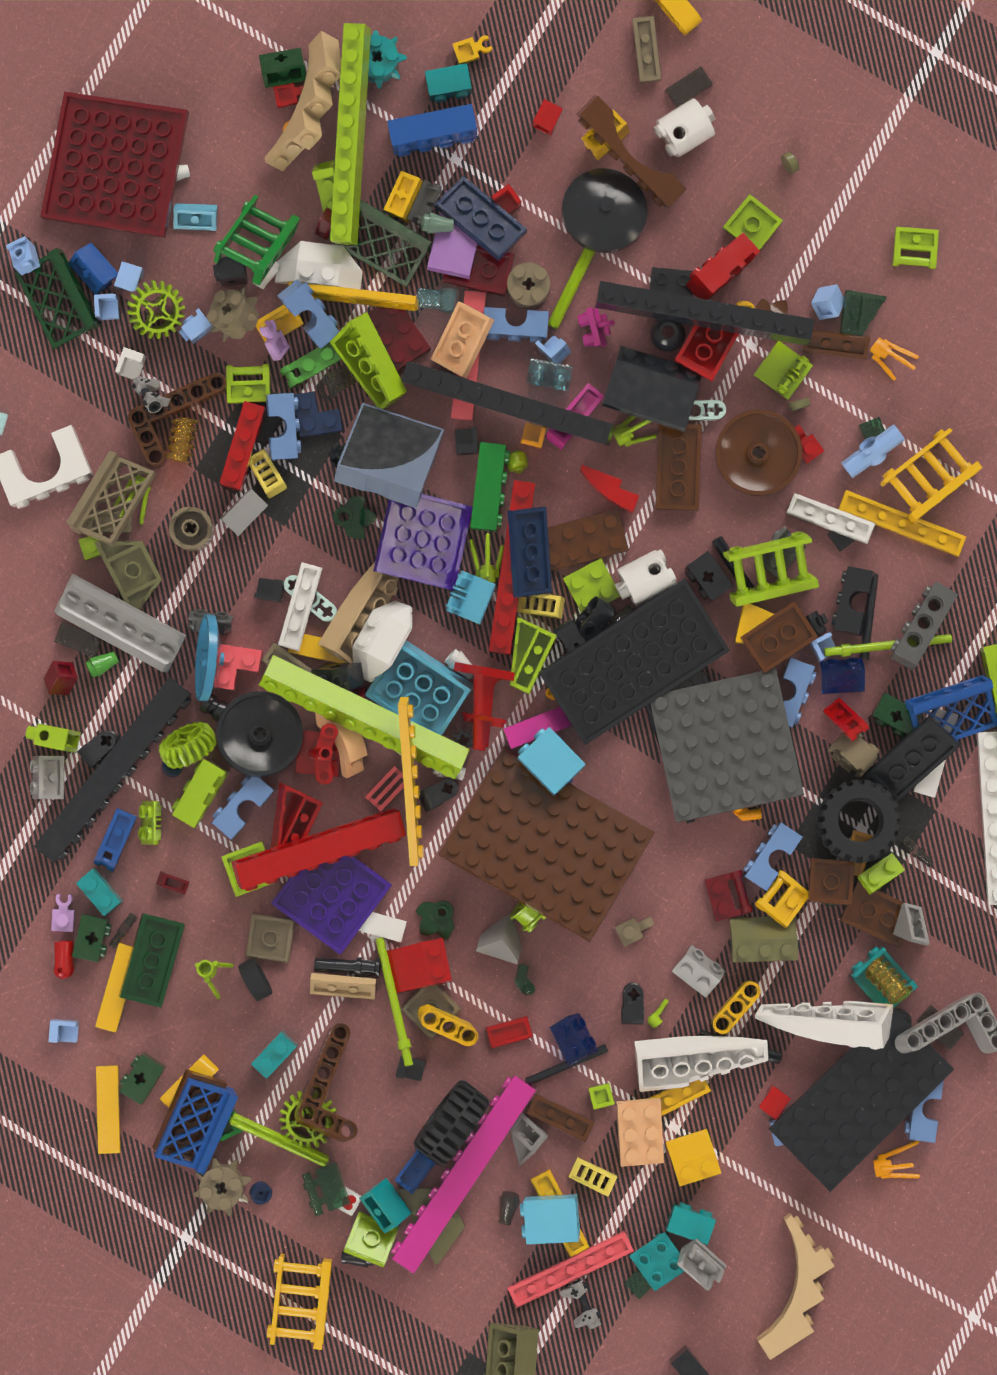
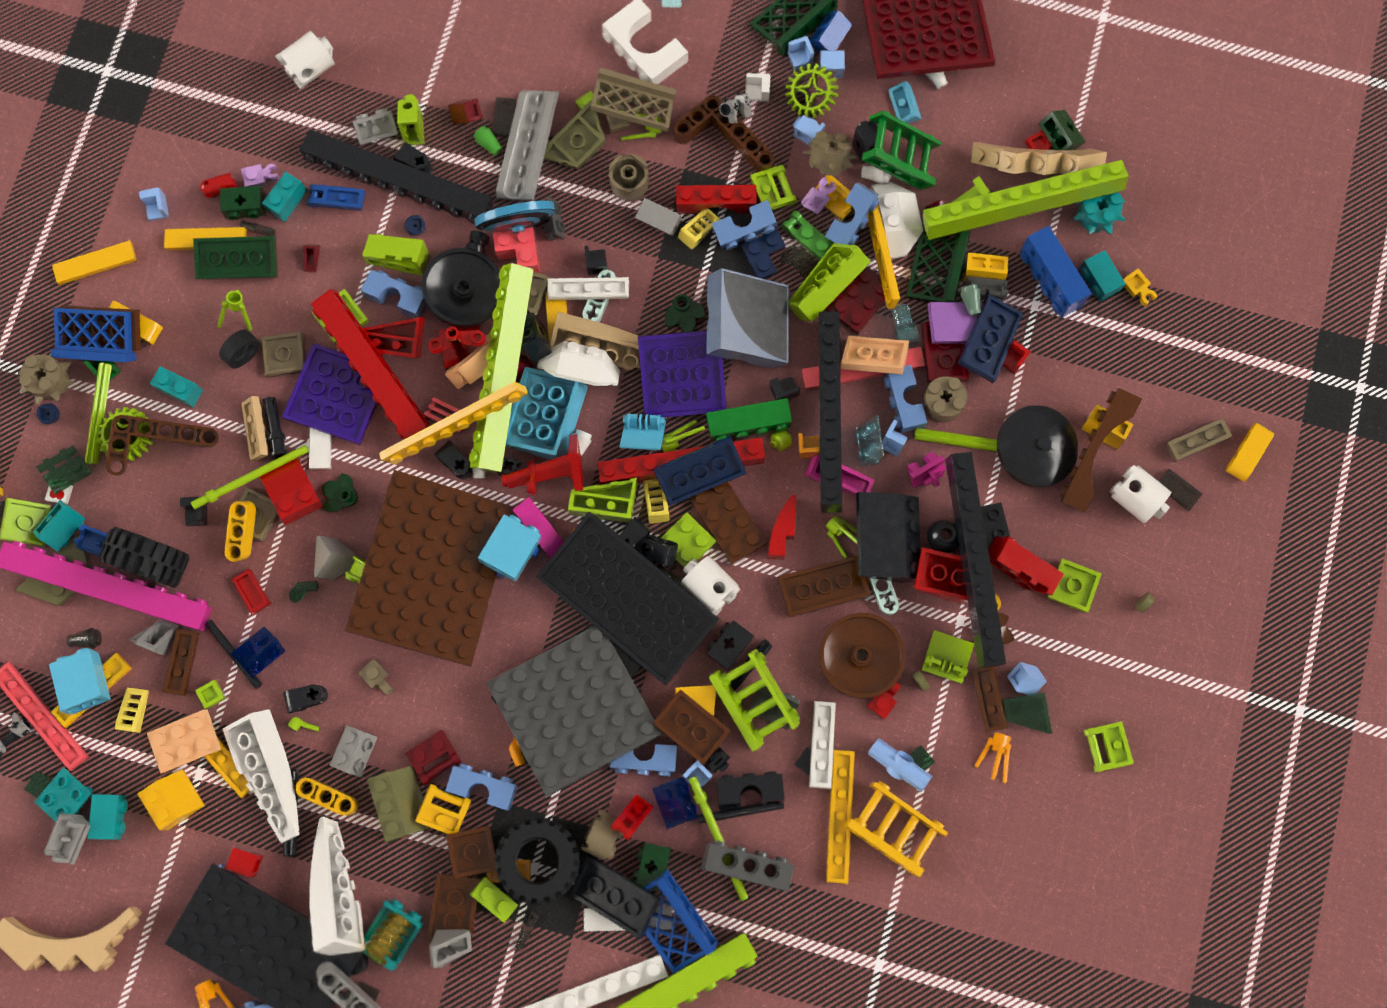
camera: 75 degrees right, 10 degrees down
(140, 1090) = (127, 281): dark green brick -> none
(147, 832) = (348, 219): lime hinge -> none
(181, 440) = (705, 147): clear yellow piece -> none
(187, 745) = (433, 227): lime gear -> none
(547, 117) = (1103, 368): red panel -> none

